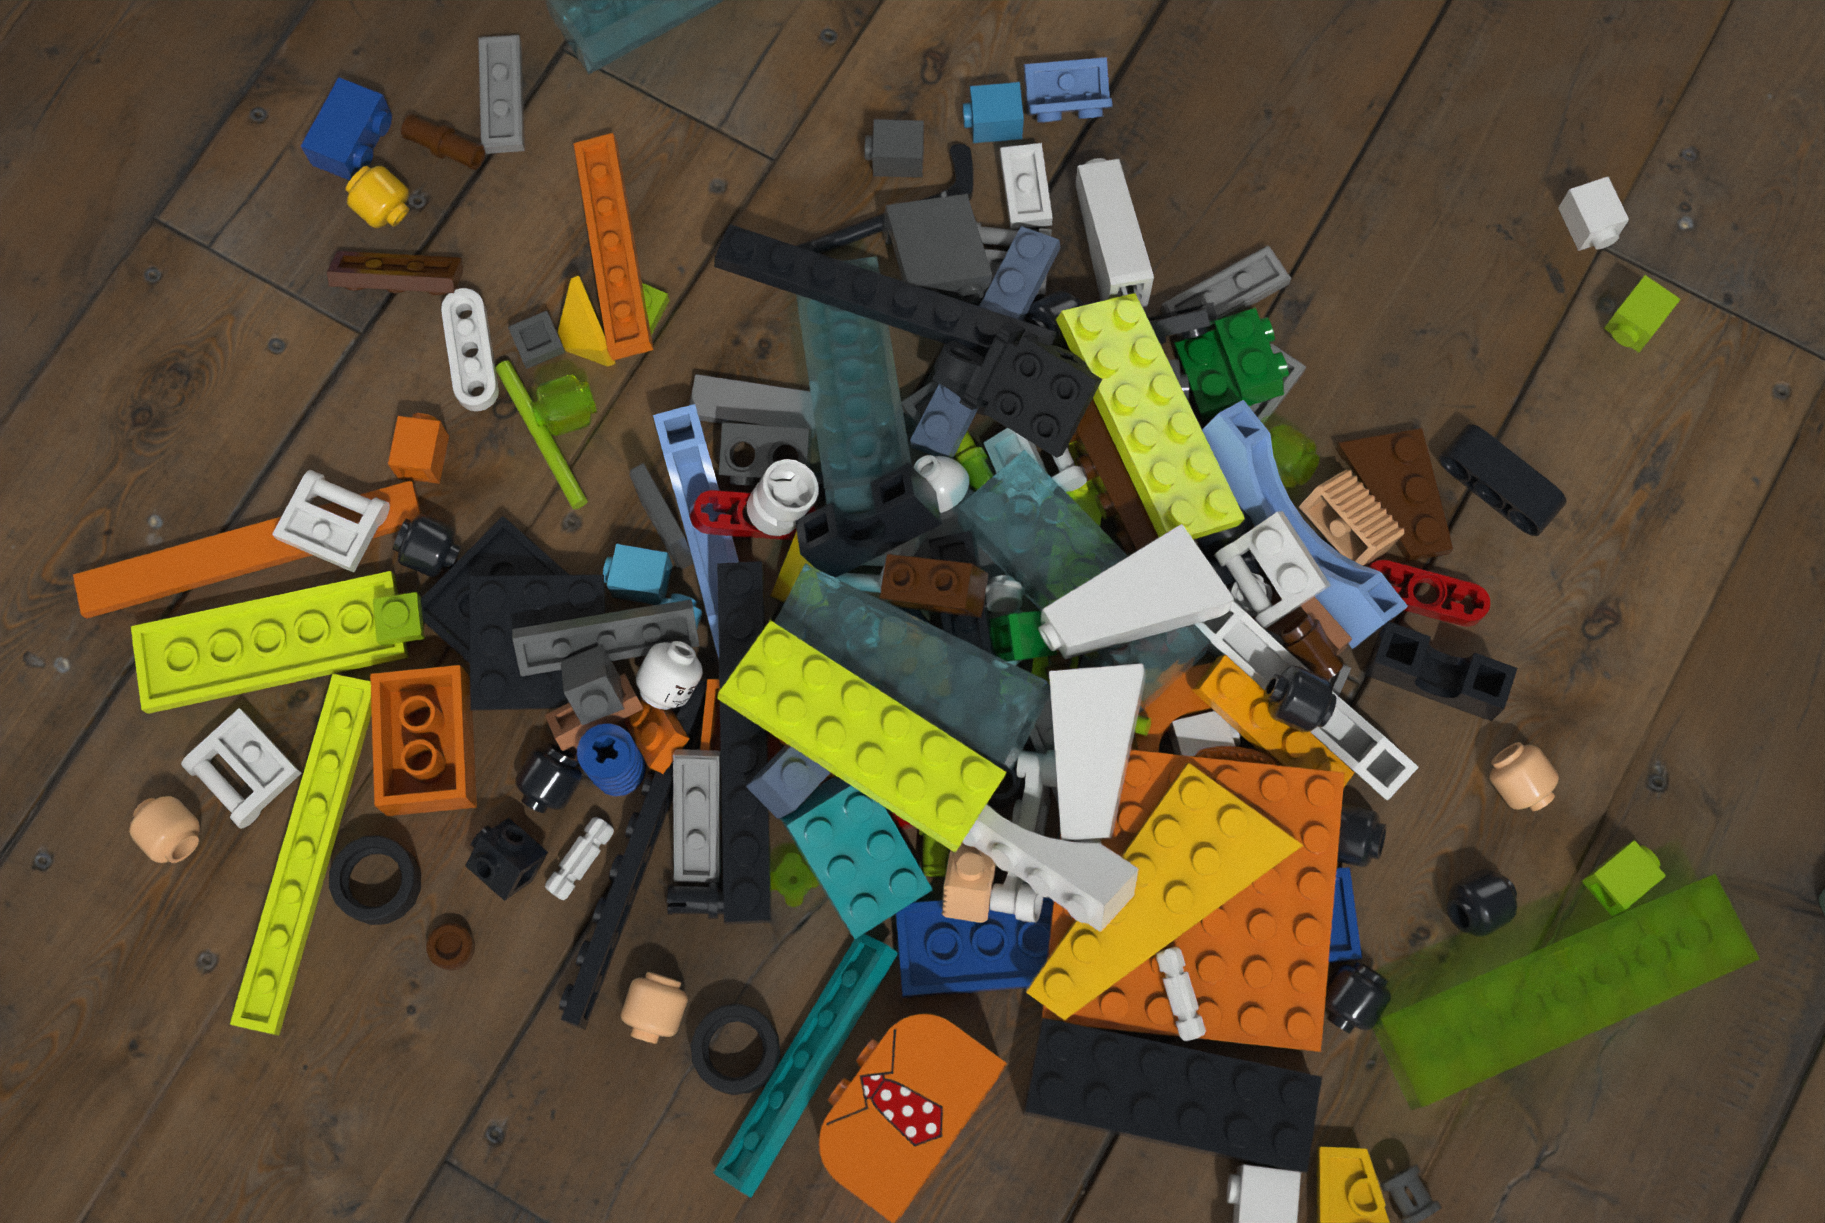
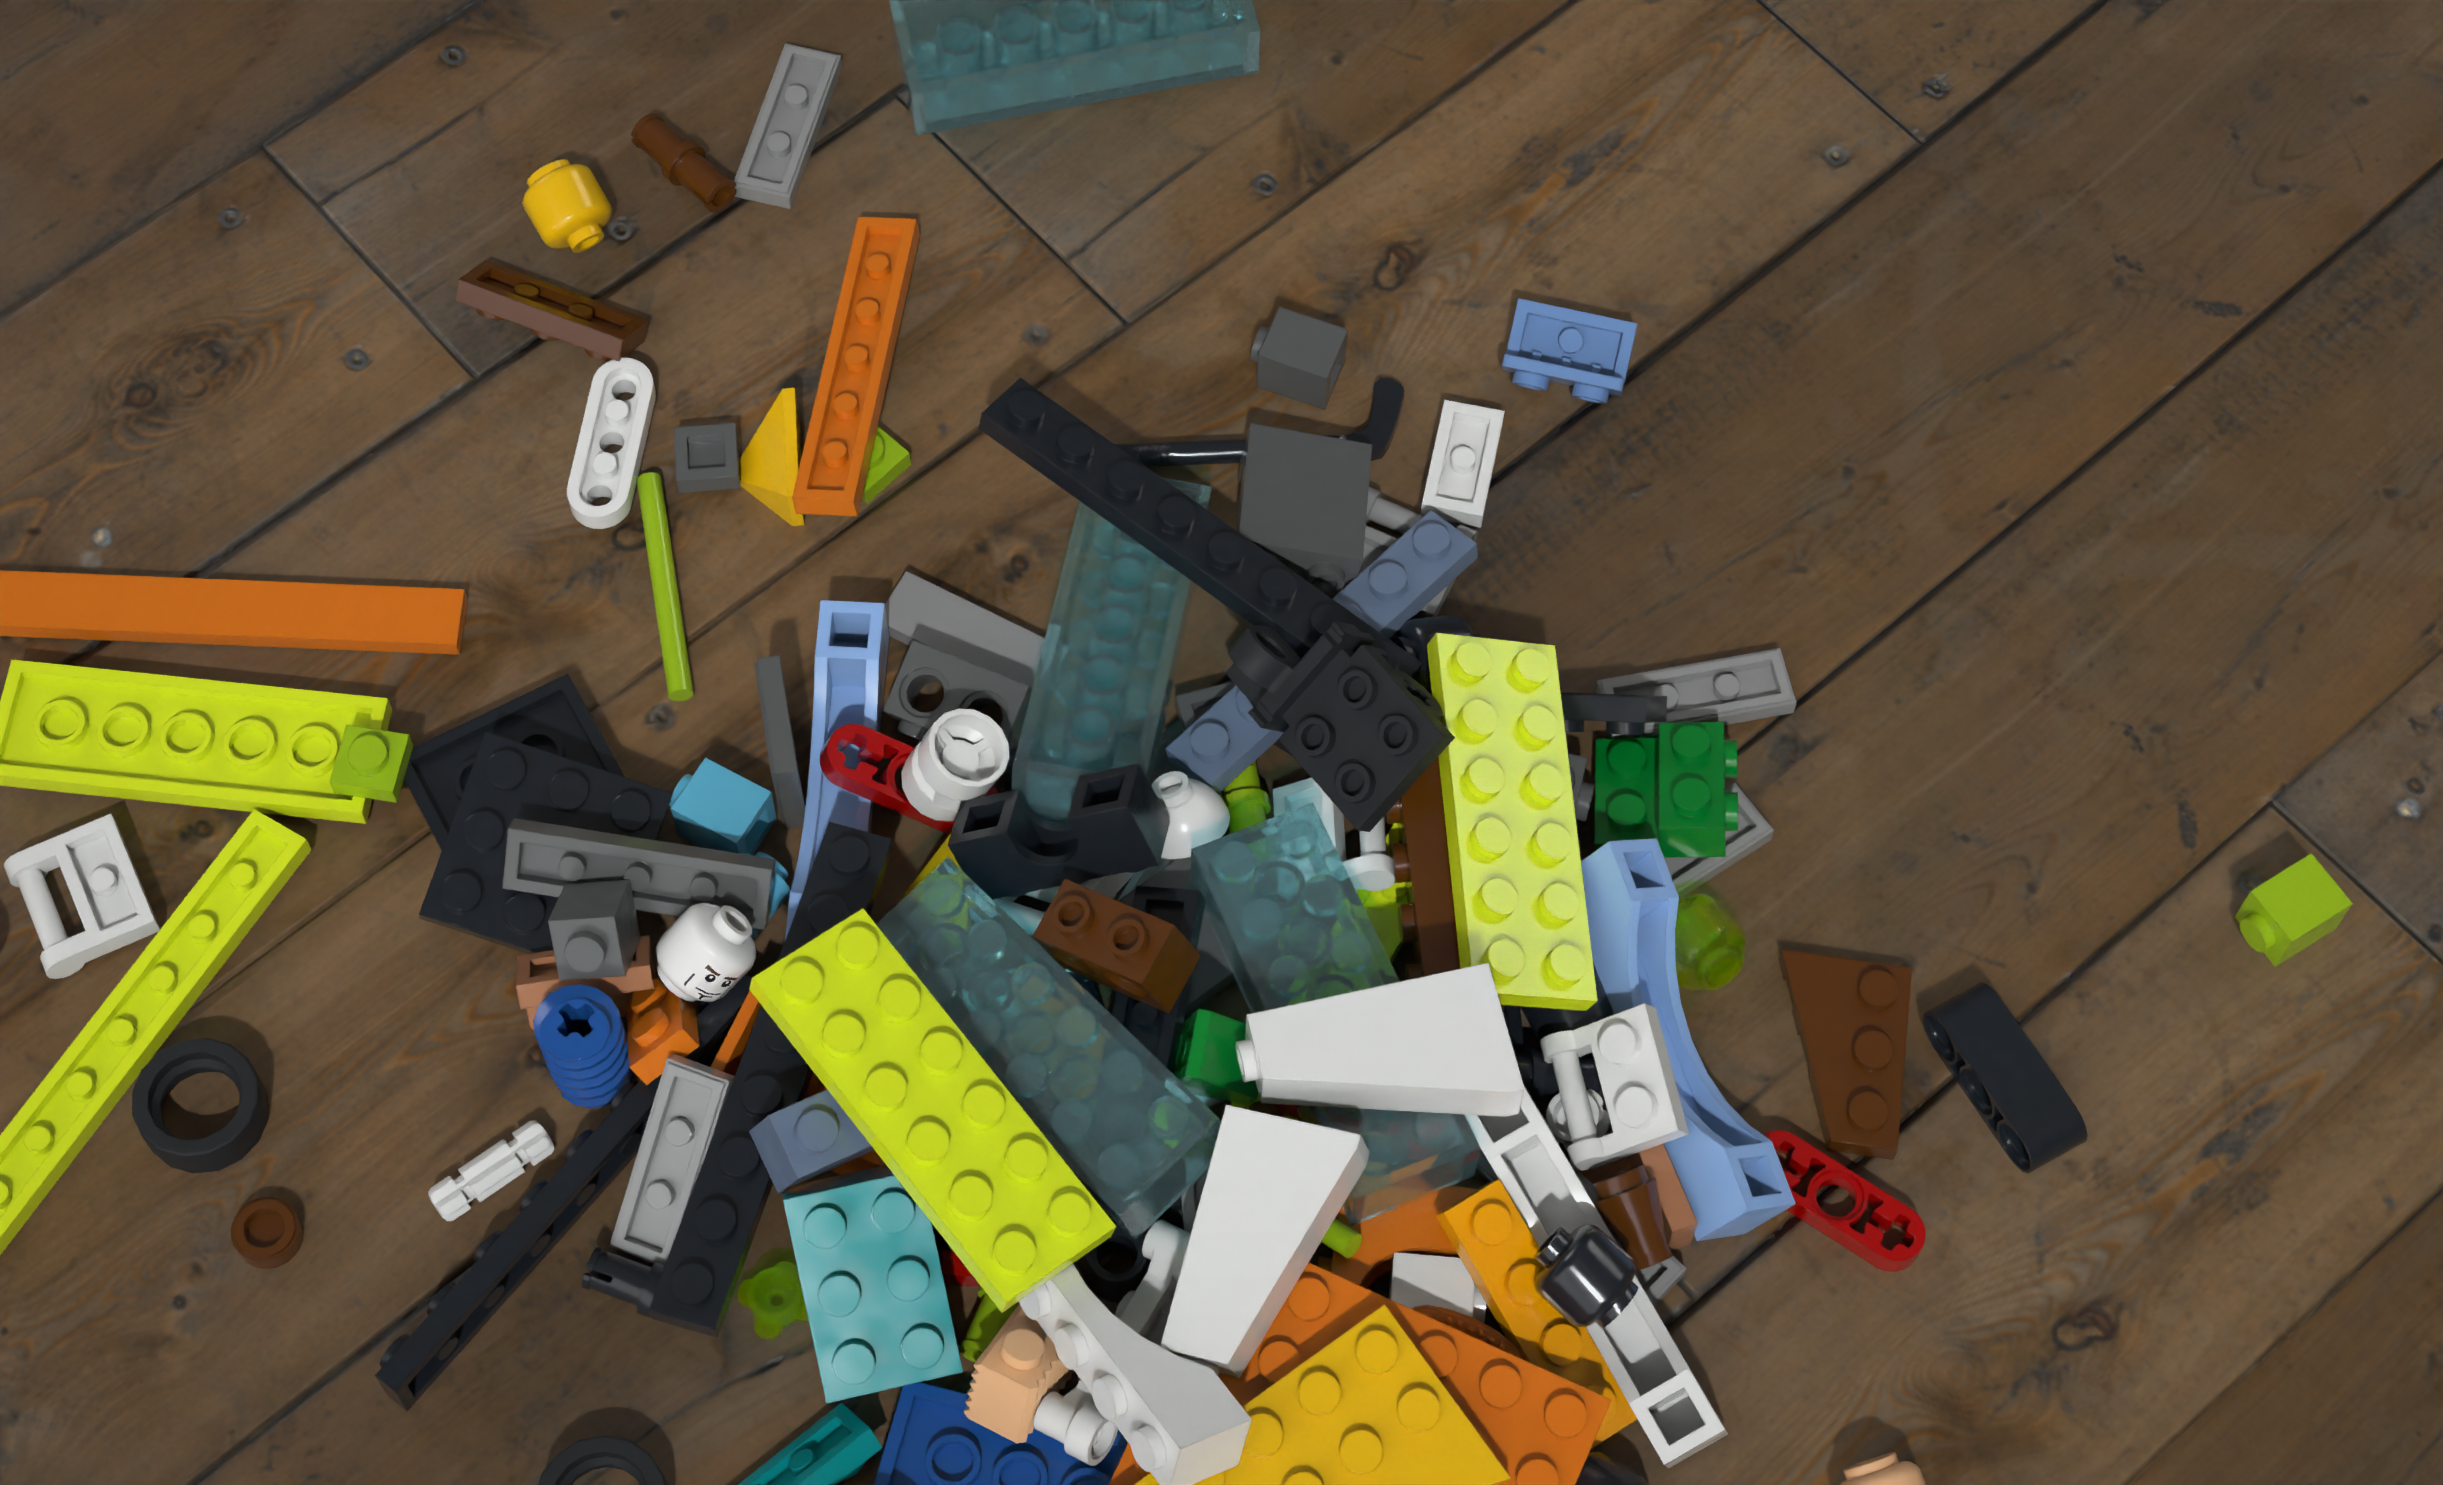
camera: 15 degrees right, 10 degrees down
(327, 533) = (322, 621): white plate -> none
(347, 129) = (561, 106): blue brick -> none
(418, 448) = (490, 550): orange brick -> none
(423, 741) = (338, 937): orange brick -> none
(426, 545) = (449, 680): black head -> none
(505, 858) = (388, 1133): black brick -> none
(548, 778) = (490, 1046): black head -> none
(564, 405) = (708, 554): clear neon green head -> none
(654, 1007) = (512, 1406): light nougat head -> none
(994, 112) = (1454, 351): dark azure brick -> none
(1004, 594) = (1216, 991): white plate -> none
(1113, 231) = (1561, 558): white slope -> none
(1351, 518) = (1760, 1058): light nougat brick -> none
(1468, 684) = (1844, 1343): black arch -> none
(1593, 214) = (2269, 750): white brick -> none

